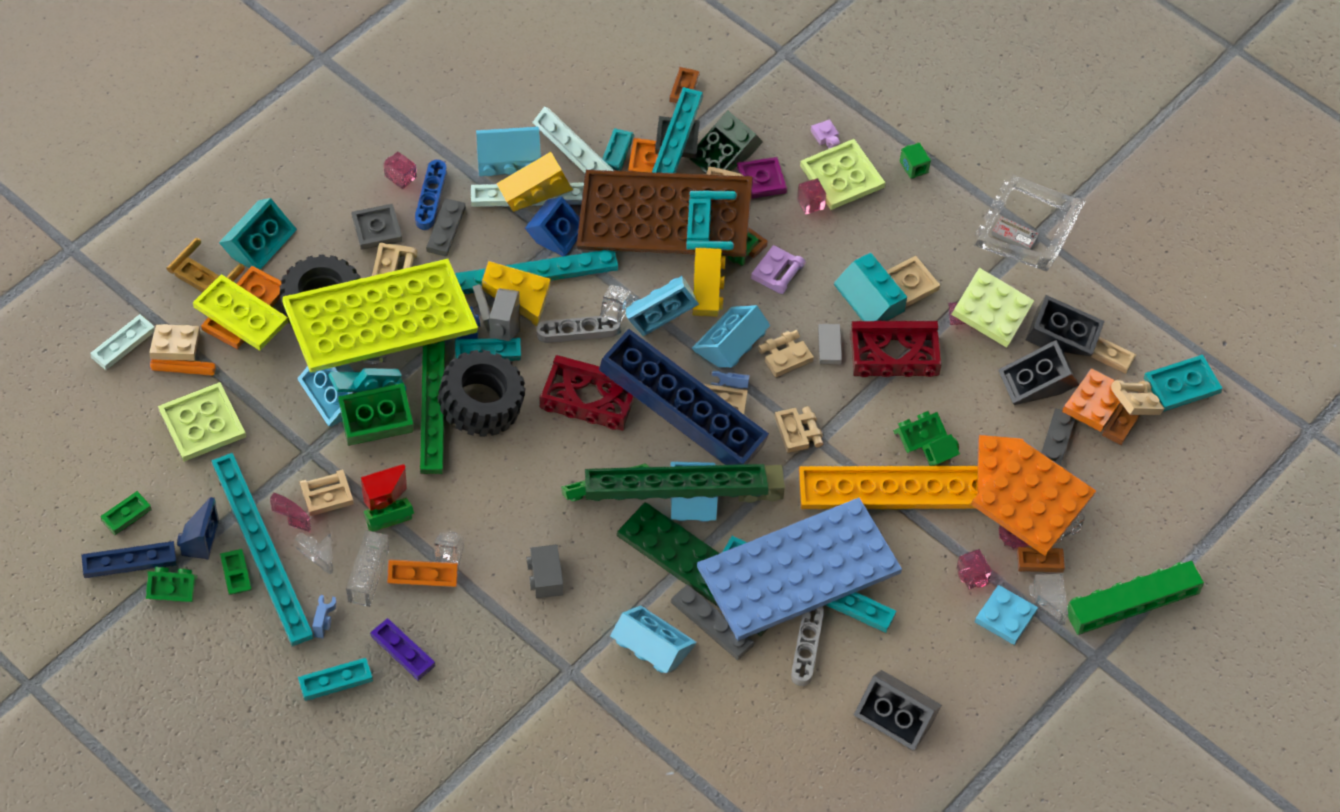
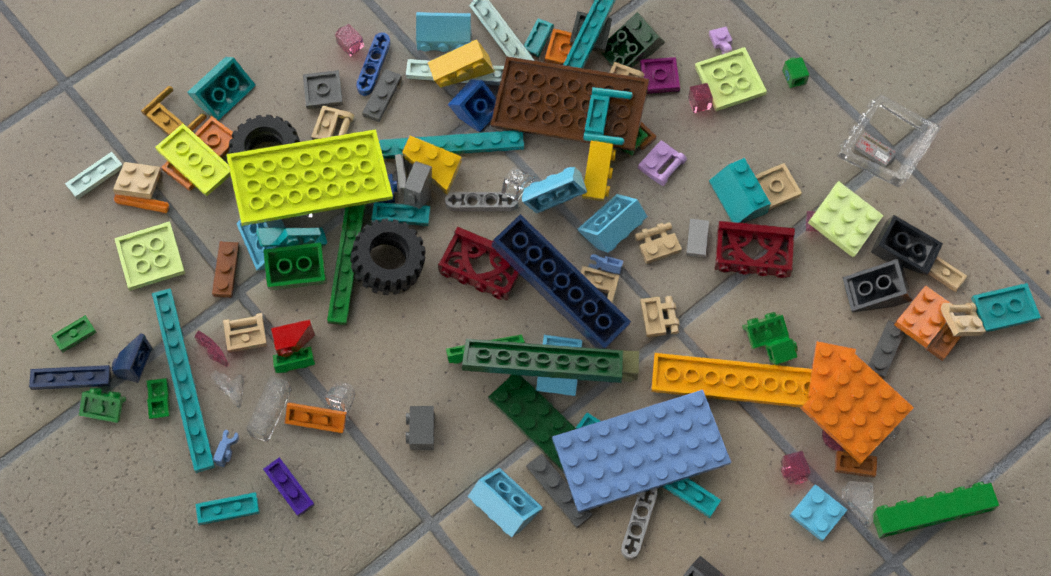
camera: 10 degrees right, 10 degrees up
(292, 428) = (225, 269): none -> dark orange plate

